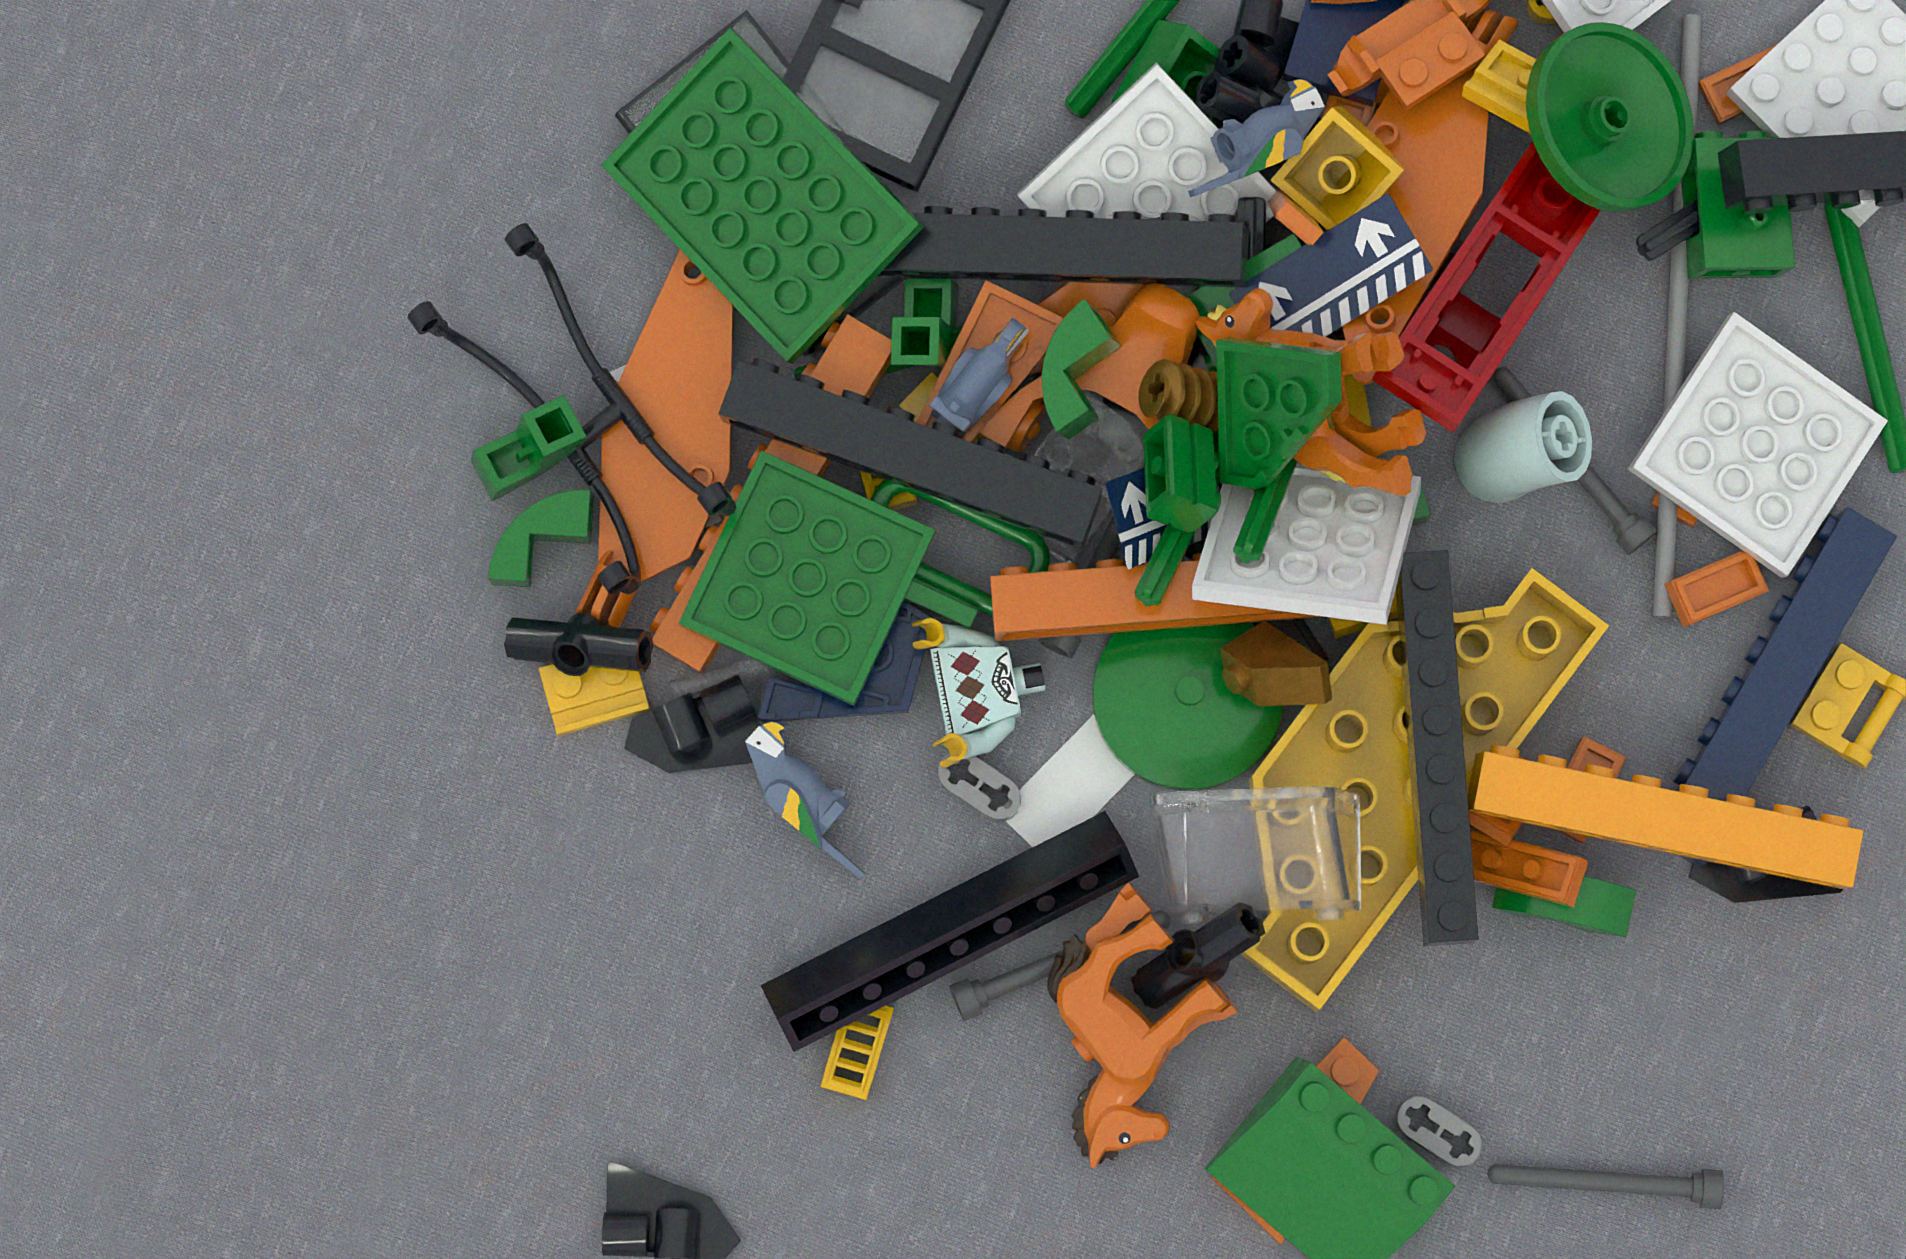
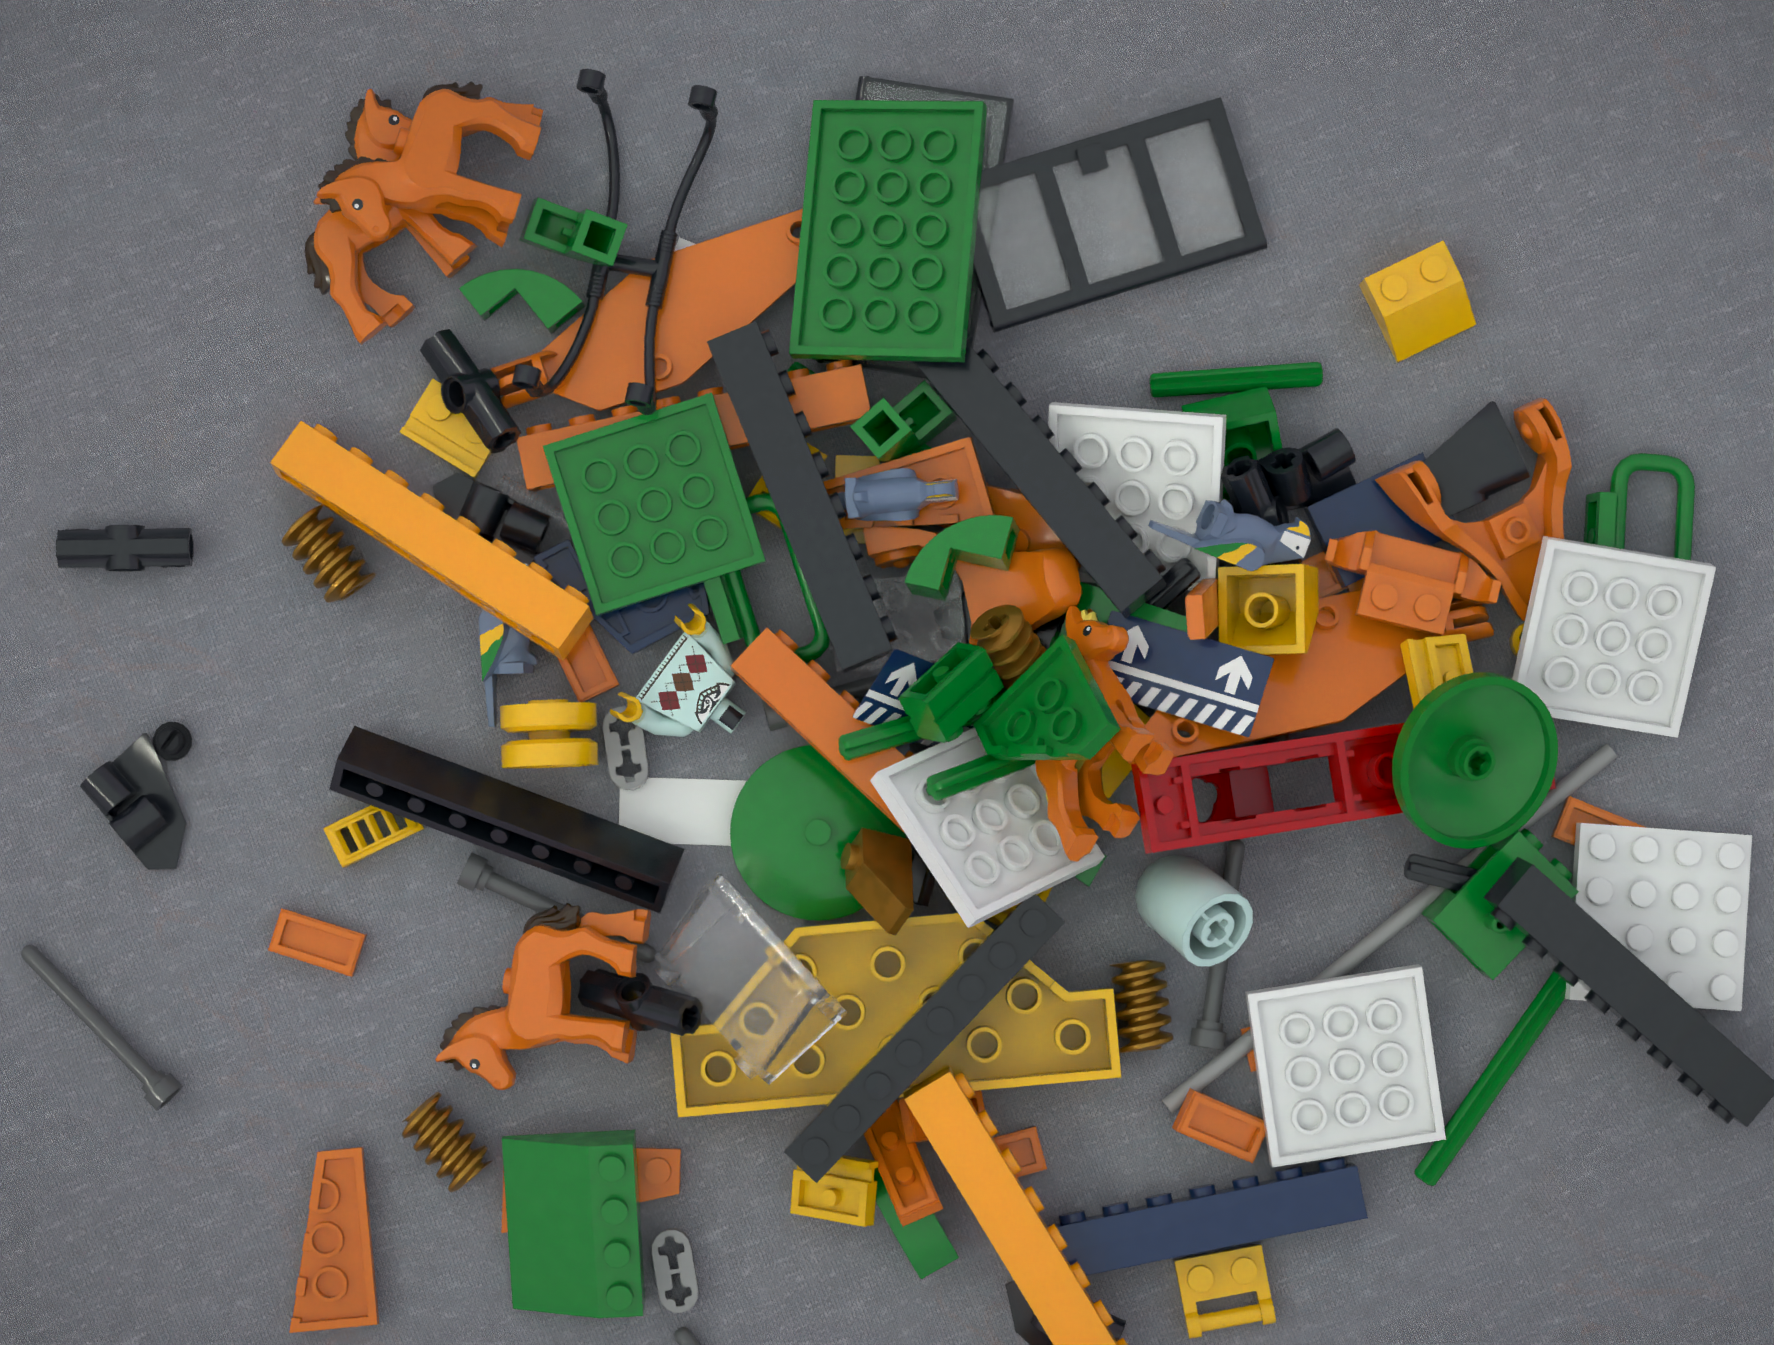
camera: 45 degrees right, 5 degrees up
(364, 592) = (339, 245): none -> orange animal
(369, 507) = (429, 164): none -> orange animal
(443, 1041) = (124, 548): none -> black piece
(602, 883) = (326, 556): none -> pearl gold piece
(634, 1147) = (172, 741): none -> black piece
(670, 781) = (432, 539): none -> light orange brick
(870, 754) = (588, 668): none -> orange tile
(906, 1179) = (317, 942): none -> orange tile
(909, 828) = (549, 734): none -> yellow wheel
(1166, 1221) = (445, 1142): none -> pearl gold piece
(1505, 937) = (841, 1195): none -> yellow plate
(1563, 560) = (1142, 1005): none -> pearl gold piece

